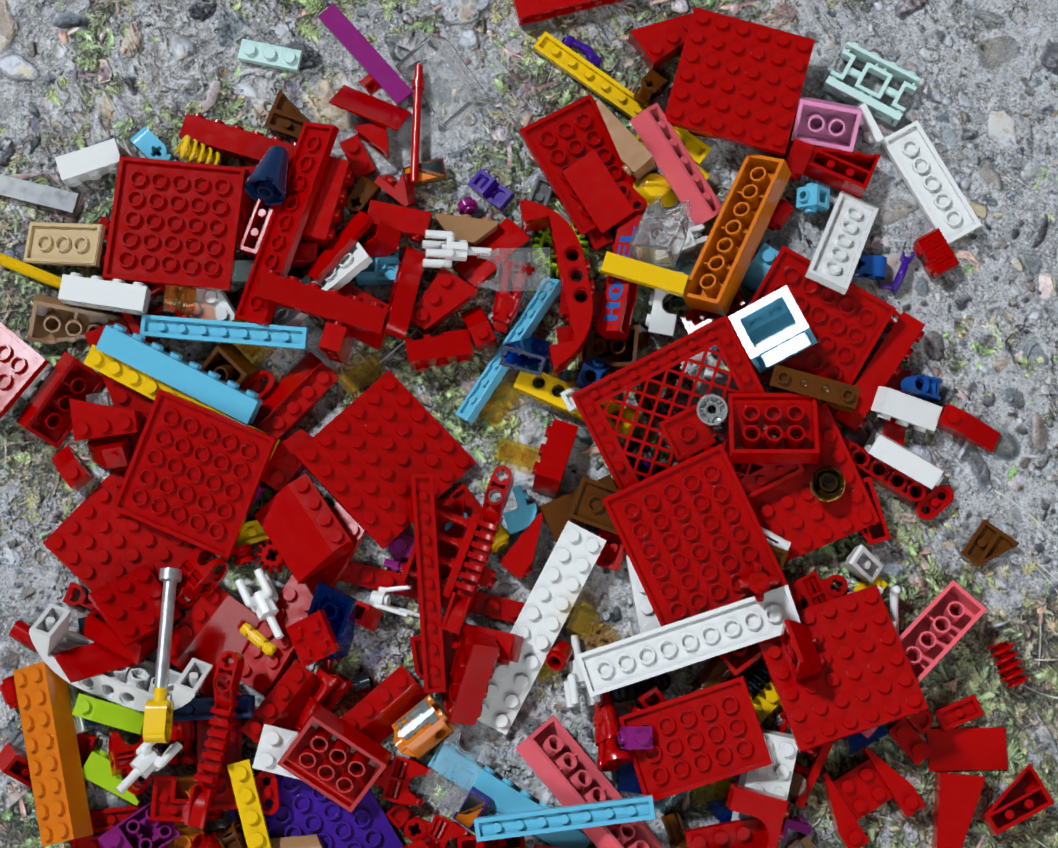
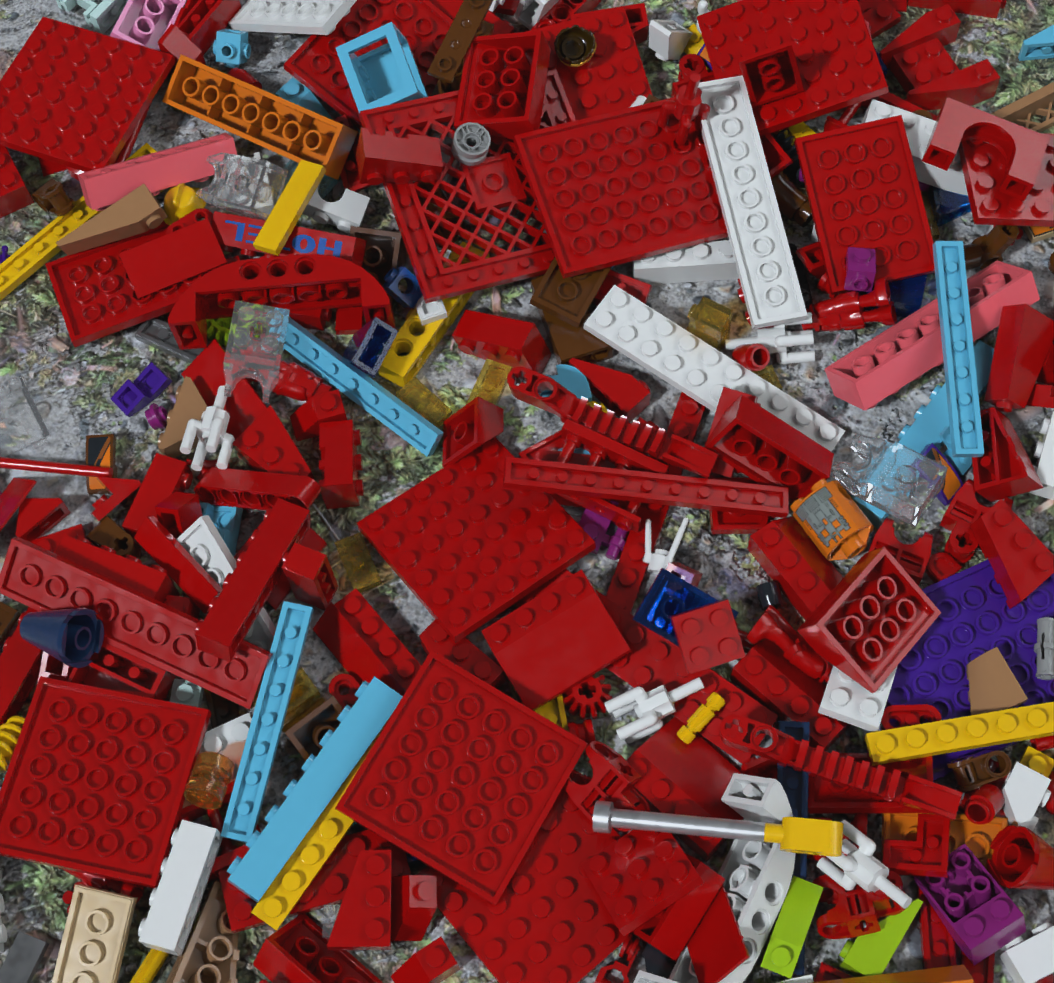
camera: 80 degrees left, 15 degrees down
(473, 445) = (470, 429): none -> red slope
(680, 354) = (397, 158): none -> red wedge

